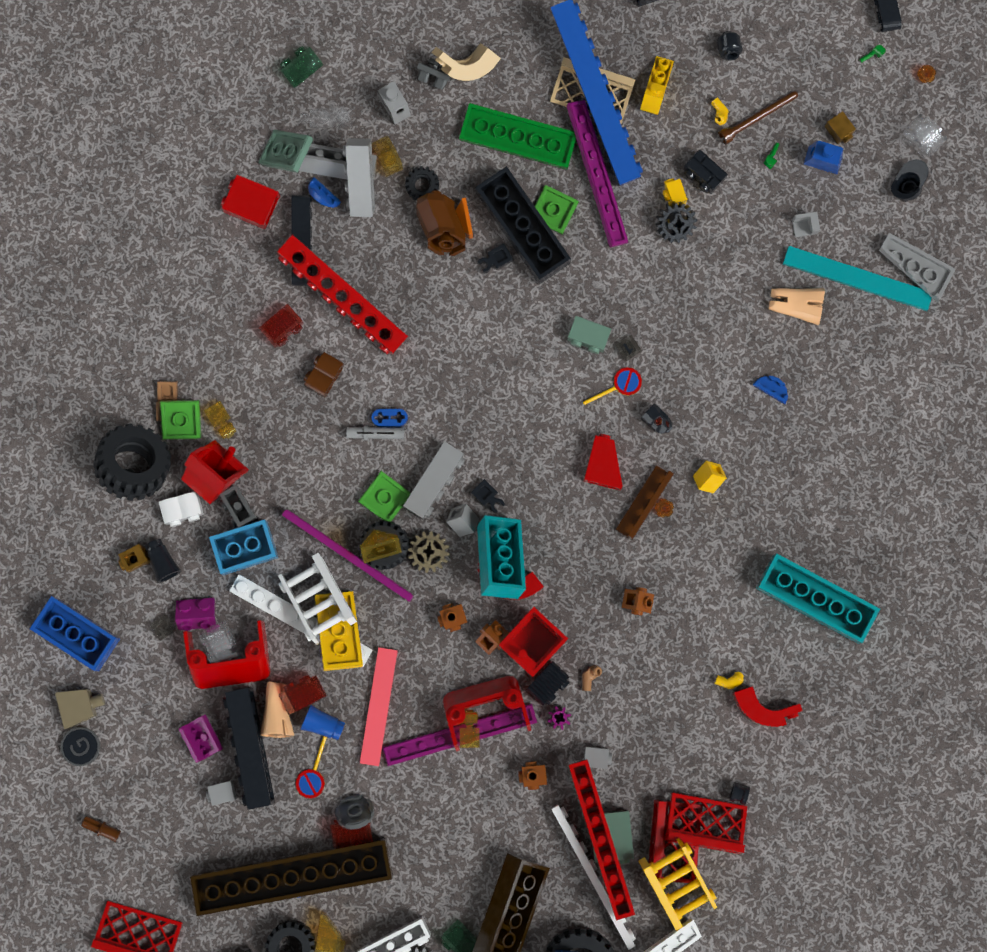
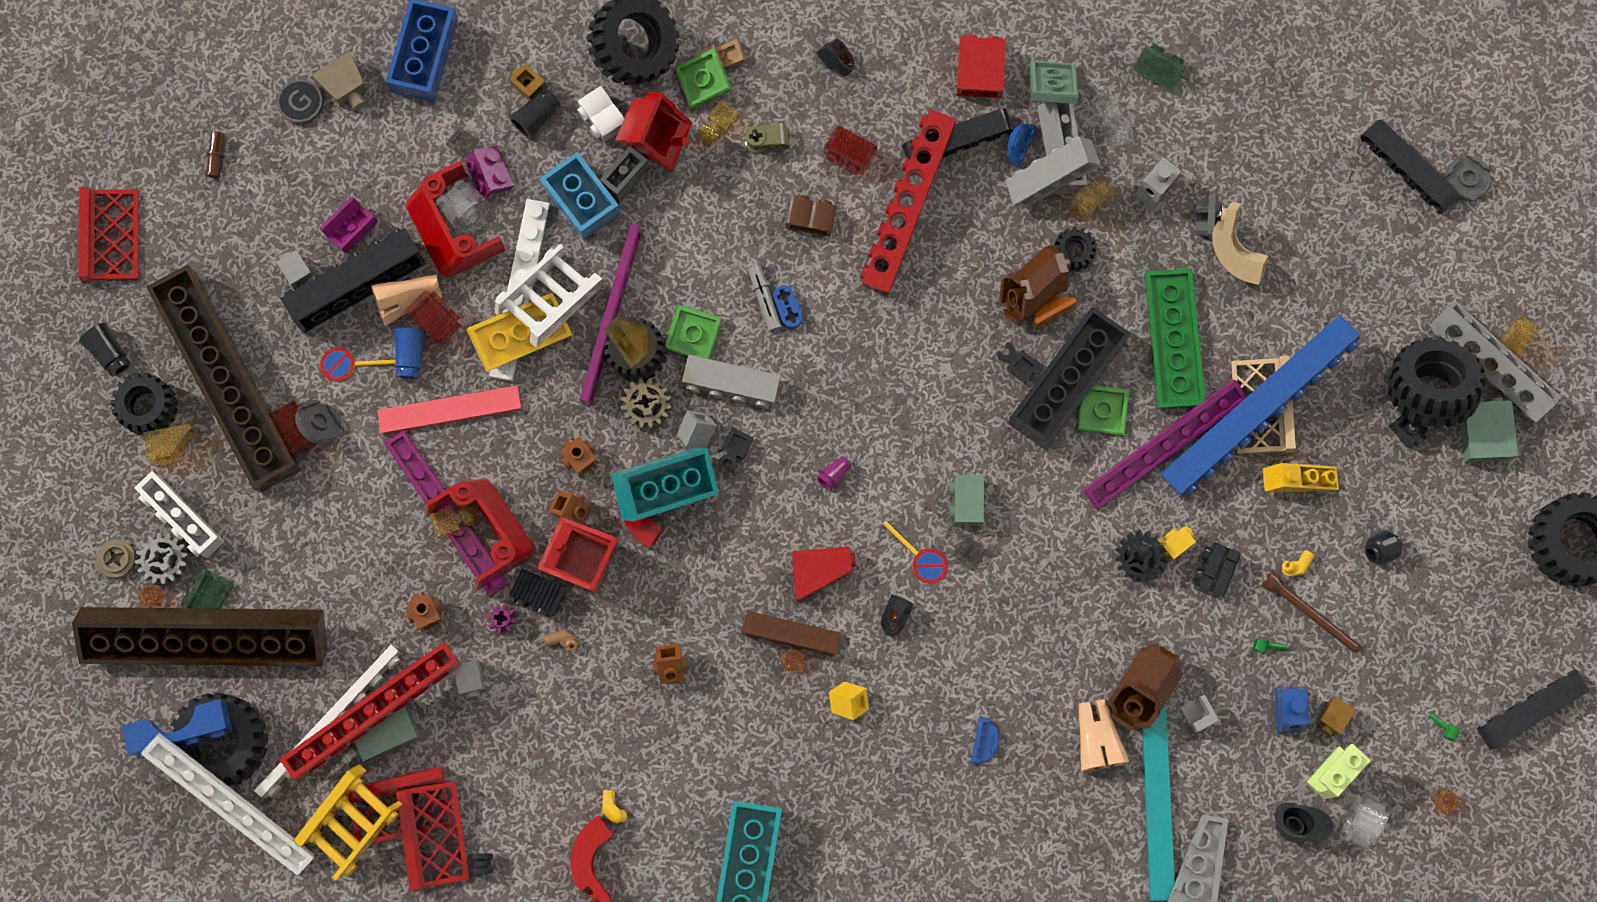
camera: 70 degrees right, 5 degrees down
(201, 309) = (837, 57): none -> black rock
(248, 383) = (770, 138): none -> olive piece
(533, 428) = (833, 473): none -> magenta cone
(775, 255) = (1145, 687): none -> reddish brown brick
(883, 141) = (1338, 771): none -> yellowish green panel

